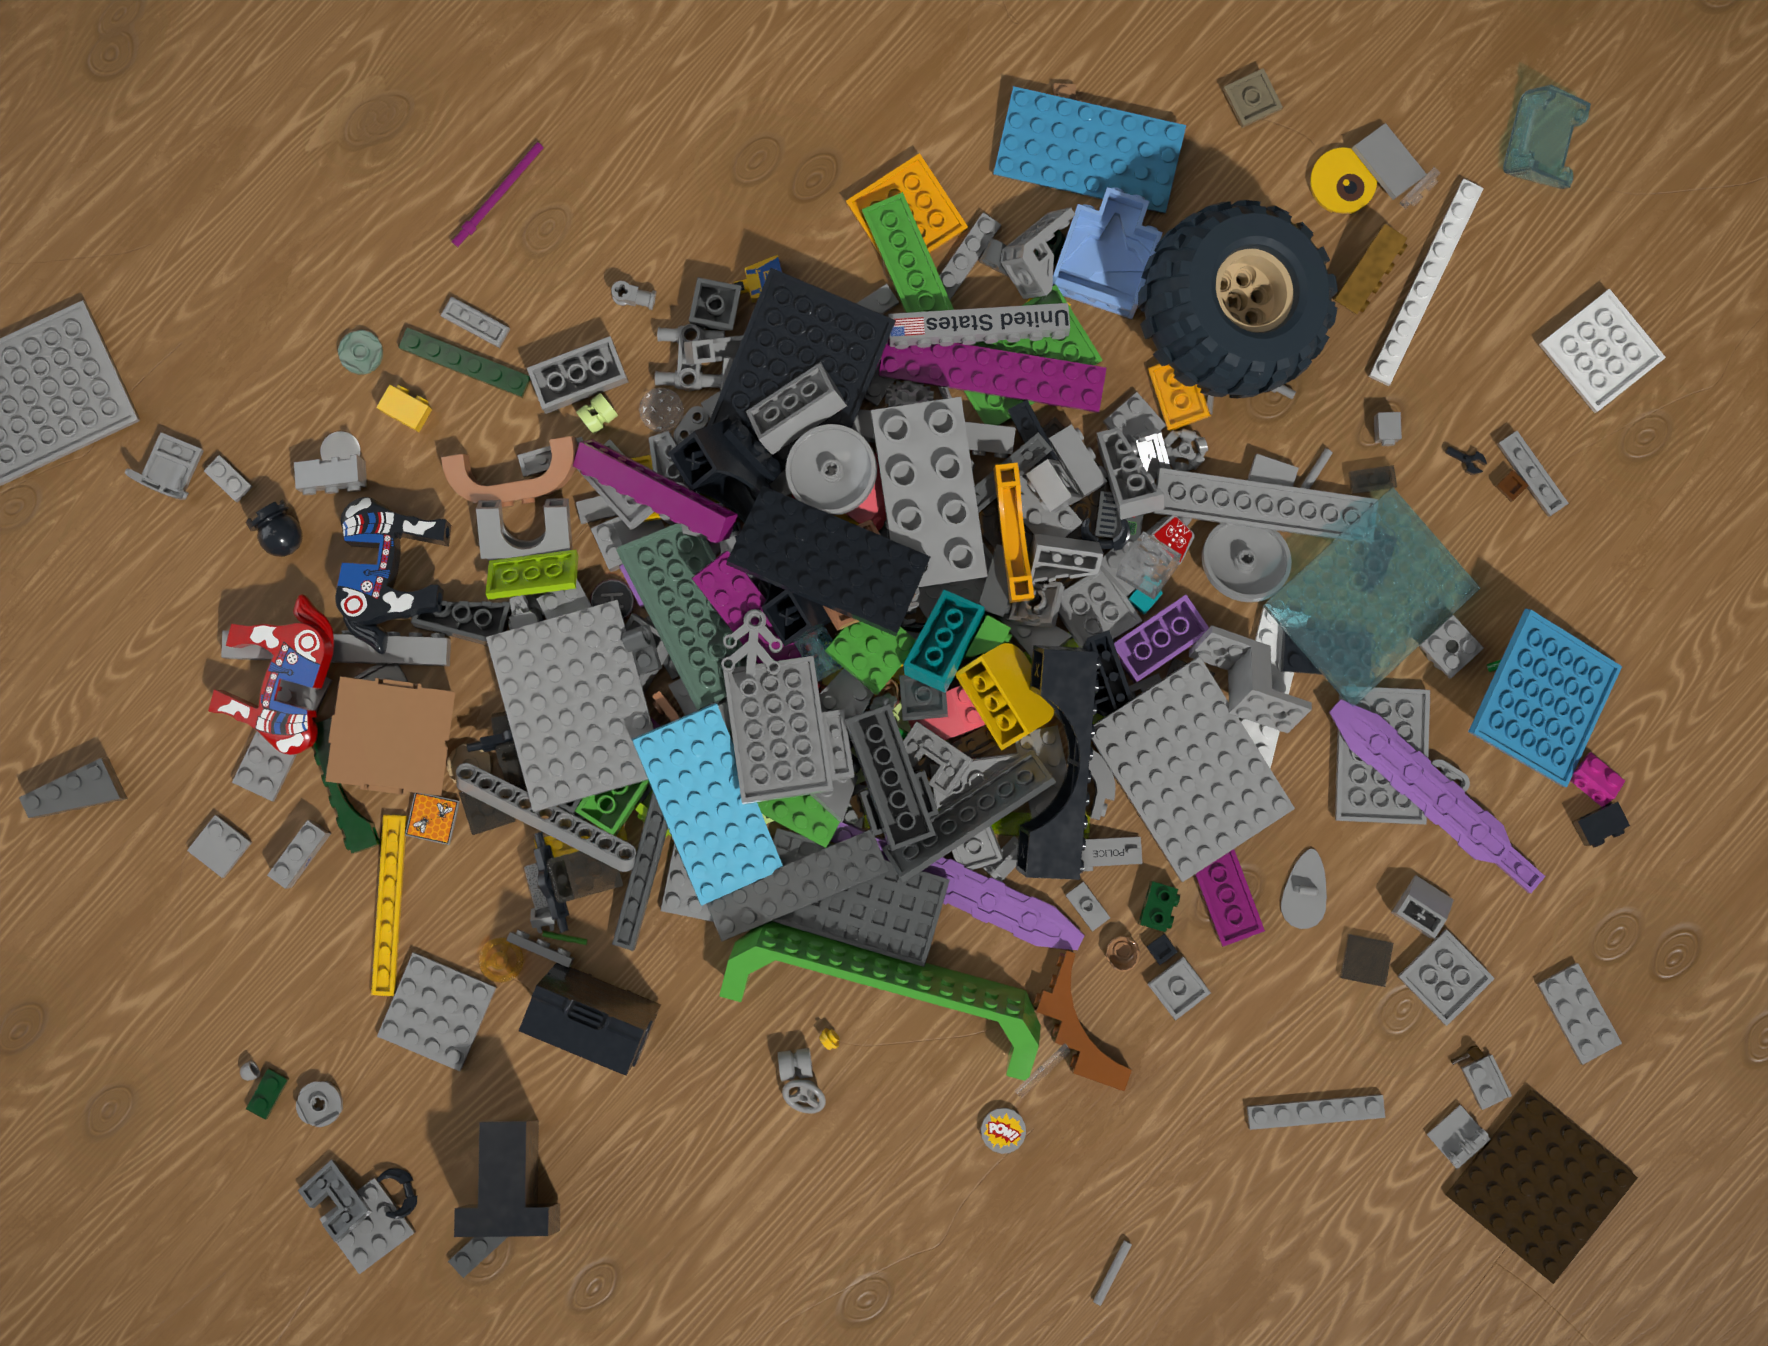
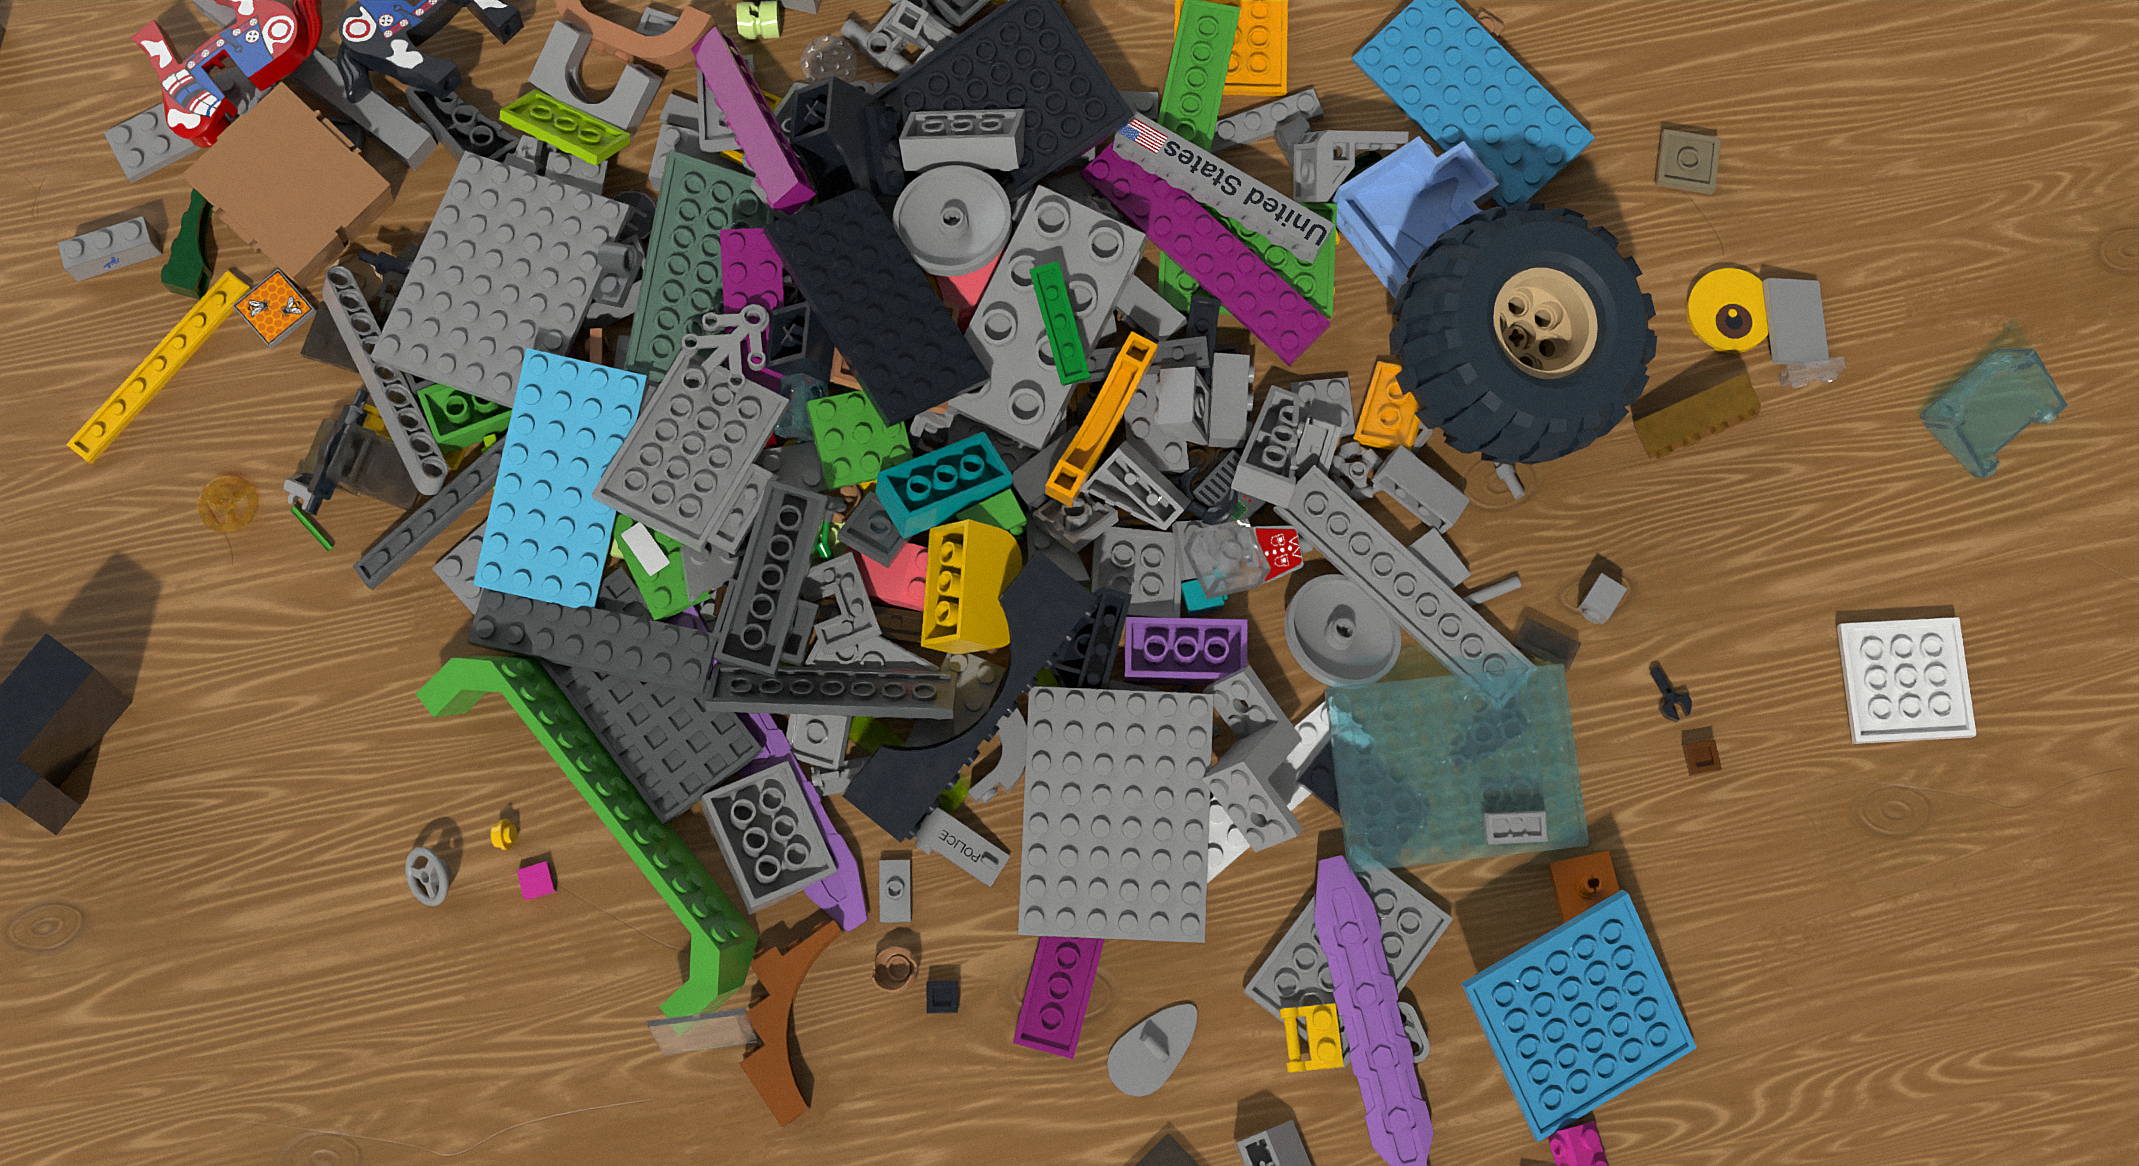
camera: 35 degrees right, 10 degrees down
(219, 846) = (40, 188): light grey plate -> none
(436, 1011) = (119, 510): light grey plate -> none
(541, 948) = (276, 518): light grey plate -> none
(590, 1018) = (258, 616): black piece -> none
(788, 808) = (645, 548): none -> white sticker
(795, 1064) = (441, 832): light grey wheel -> none
(868, 1052) = (536, 881): none -> dark pink tile
(950, 493) = (1060, 323): none -> green plate
(990, 929) = (767, 836): none -> light grey slope
(1003, 1130) = (616, 1076): tile -> none
(1159, 906) = (973, 946): dark green brick -> none
(1179, 988) = (930, 1056): light grey plate -> none
(1233, 435) = (1420, 489): none -> light grey brick
(1401, 815) = (1322, 1037): none -> yellow plate
(1426, 282) = (1751, 476): white plate -> none
(1432, 610) = (1515, 827): none -> light grey plate
(1451, 647) = (1509, 885): light grey piece -> none
(1494, 614) = (1582, 883): none -> orange tile
(1532, 473) = (1735, 760): light grey plate -> none

